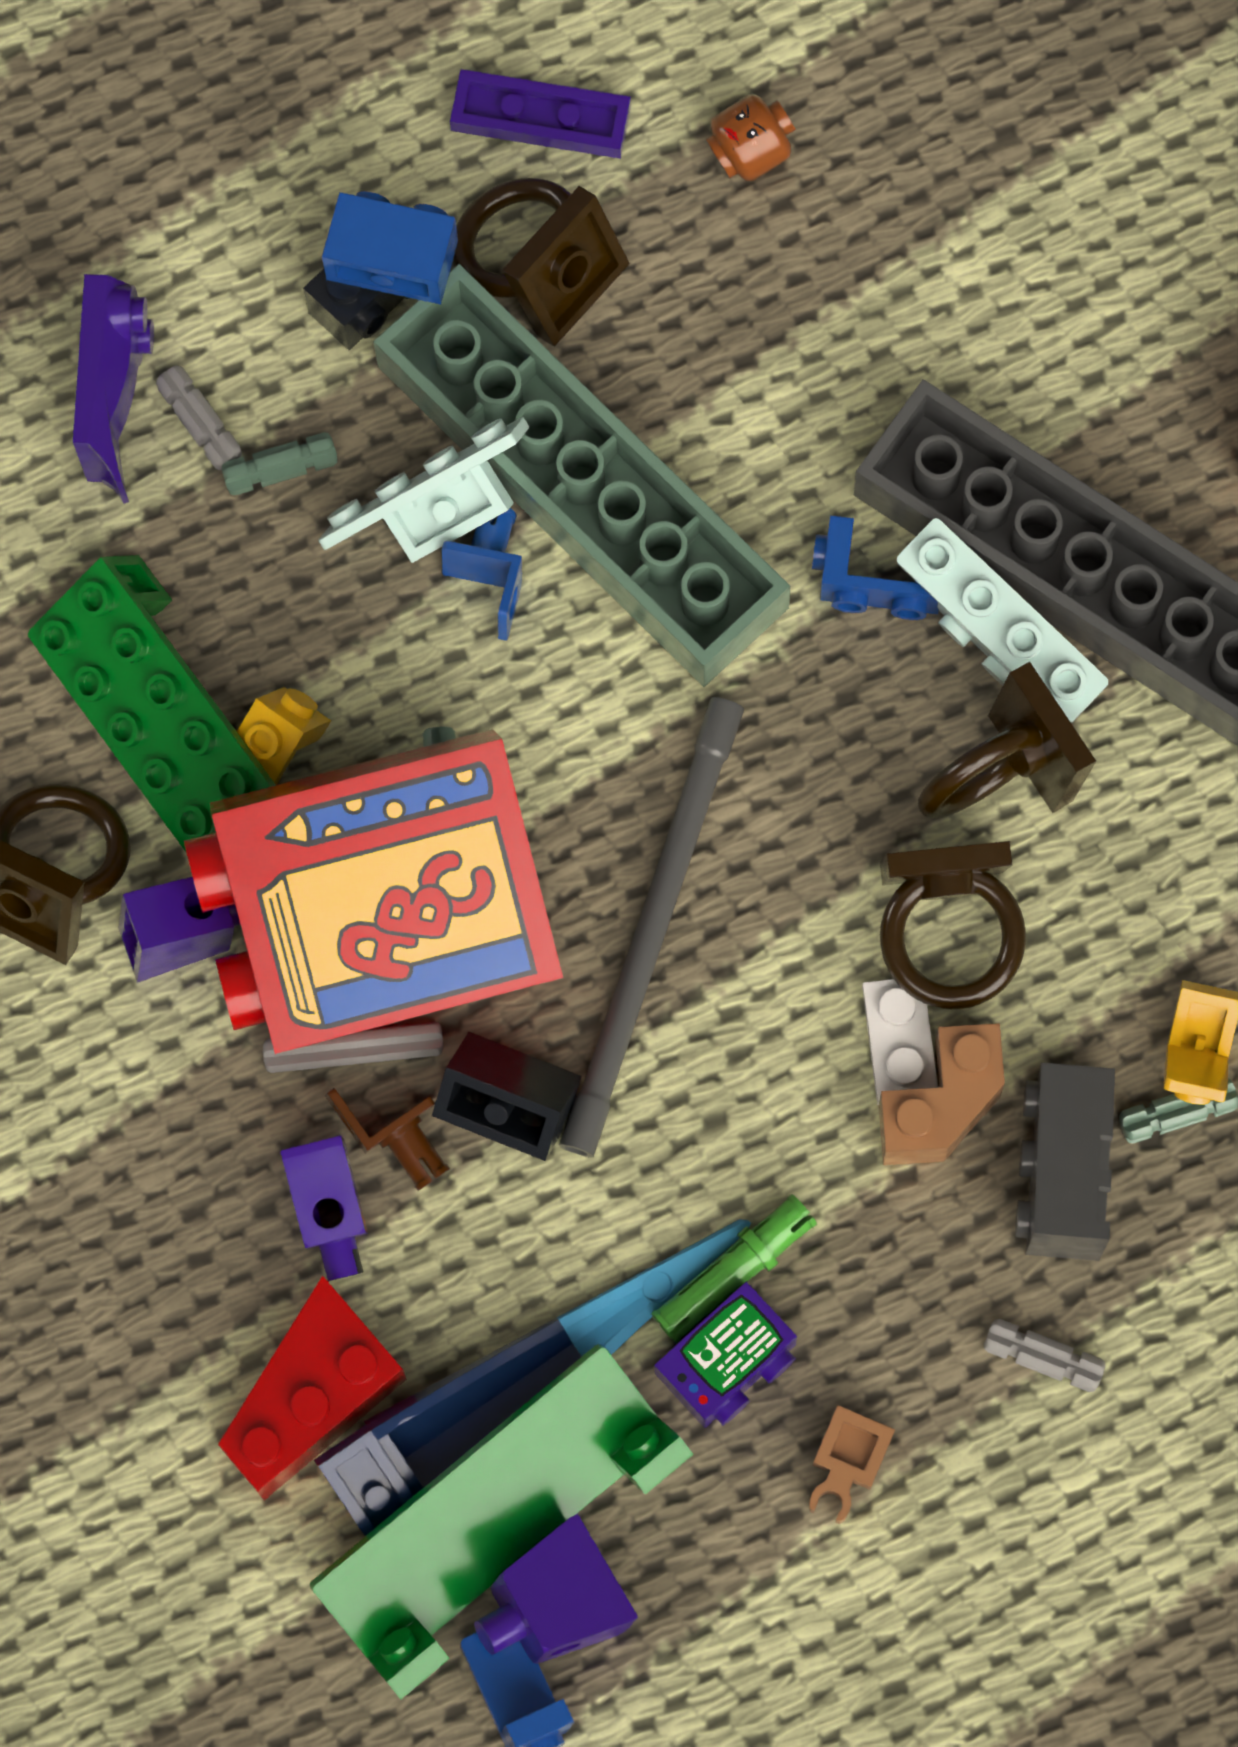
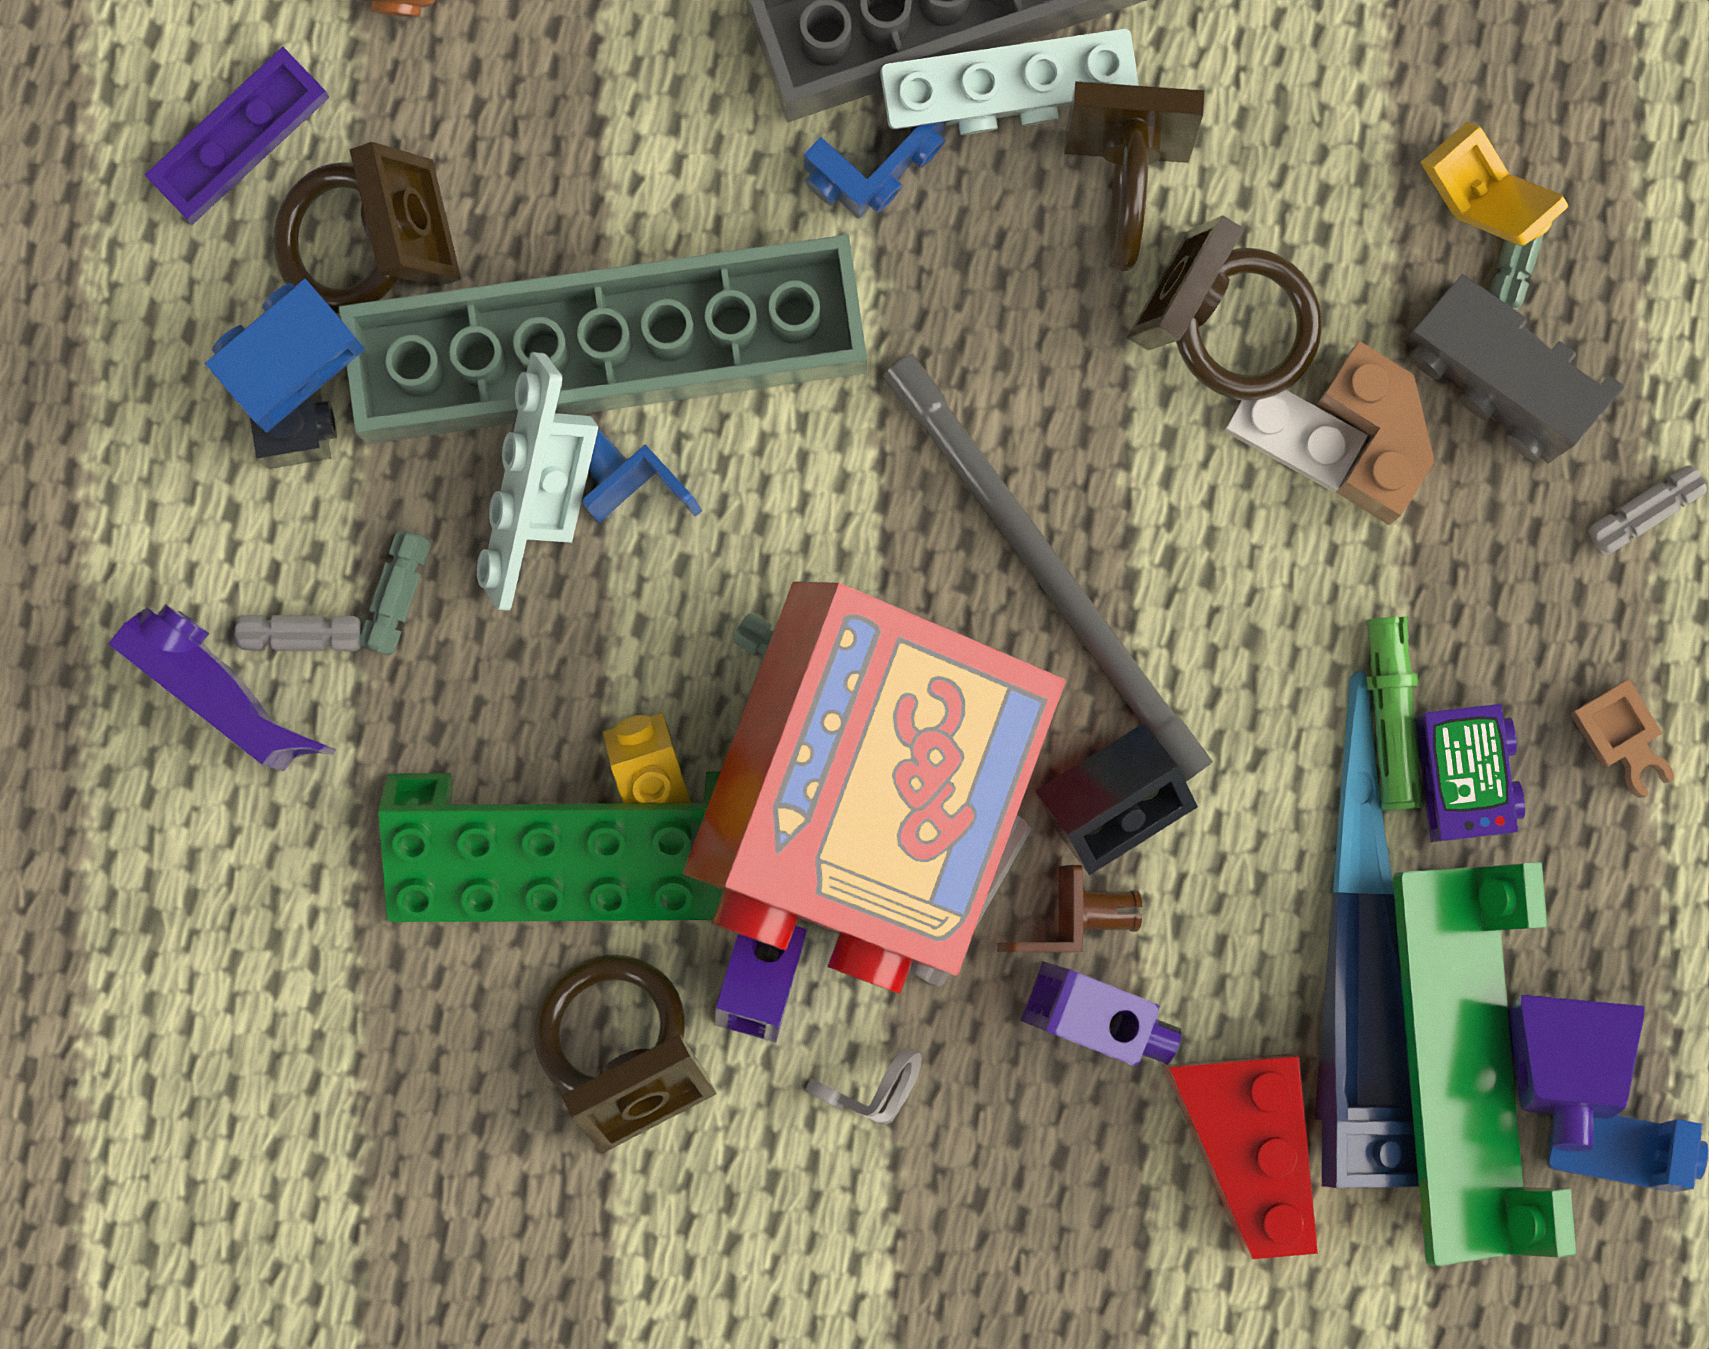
camera: 60 degrees left, 10 degrees up
(161, 1103) = (907, 1059): none -> light grey piece

